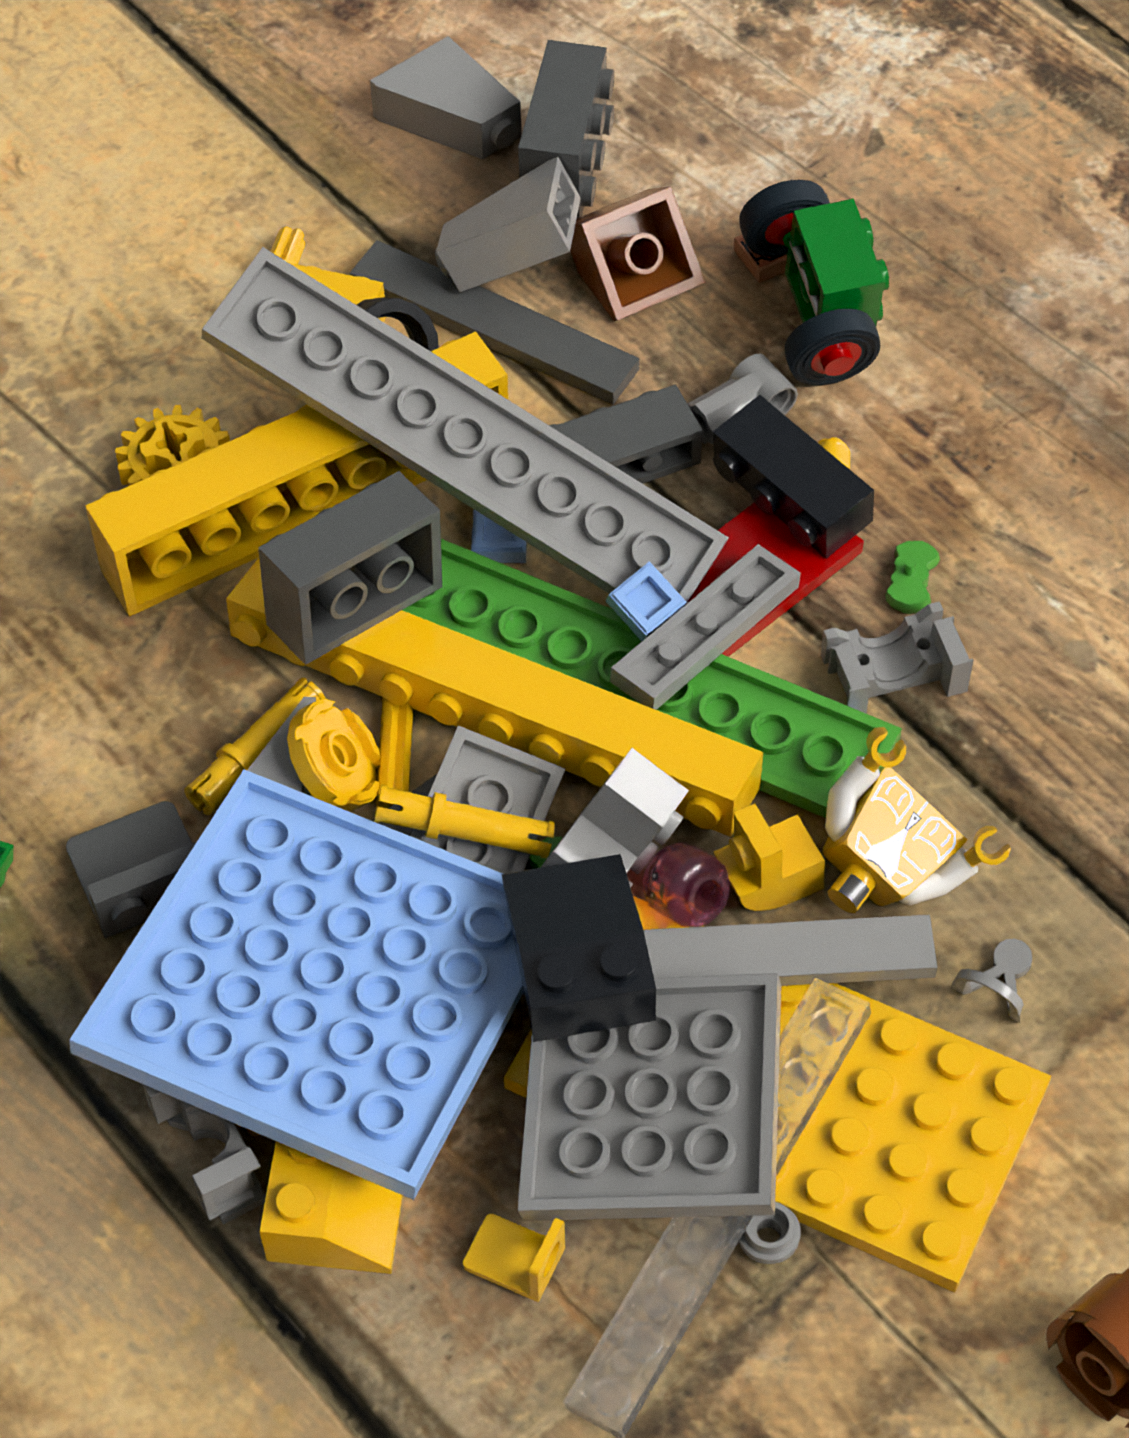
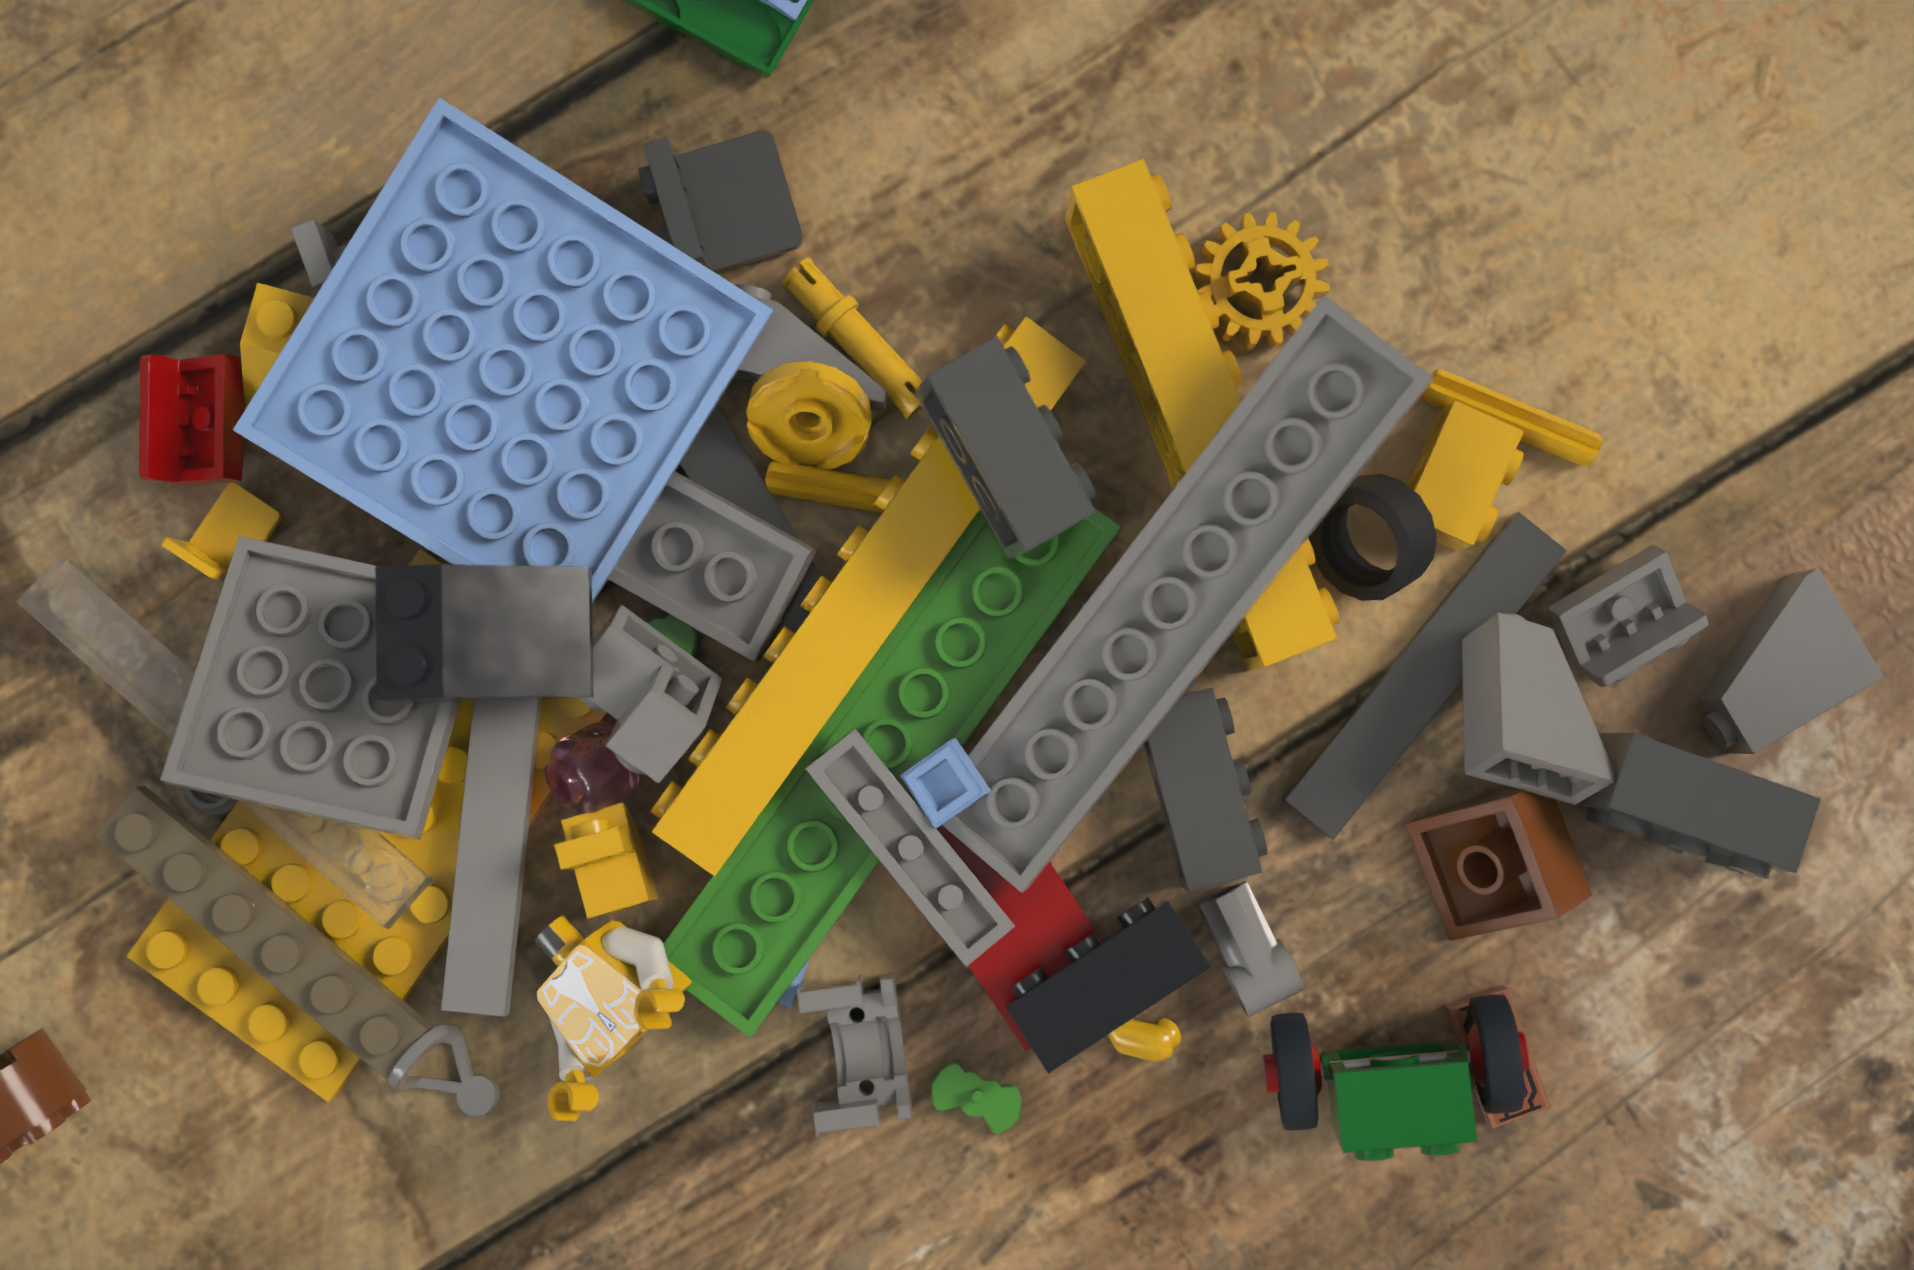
camera: 100 degrees right, 30 degrees up
(403, 1299) = (190, 419): none -> red bracket
(424, 191) = (1625, 618): none -> light grey bracket
(463, 821) = (690, 525): yellow pin -> none
(897, 1145) = (262, 930): none -> dark tan plate

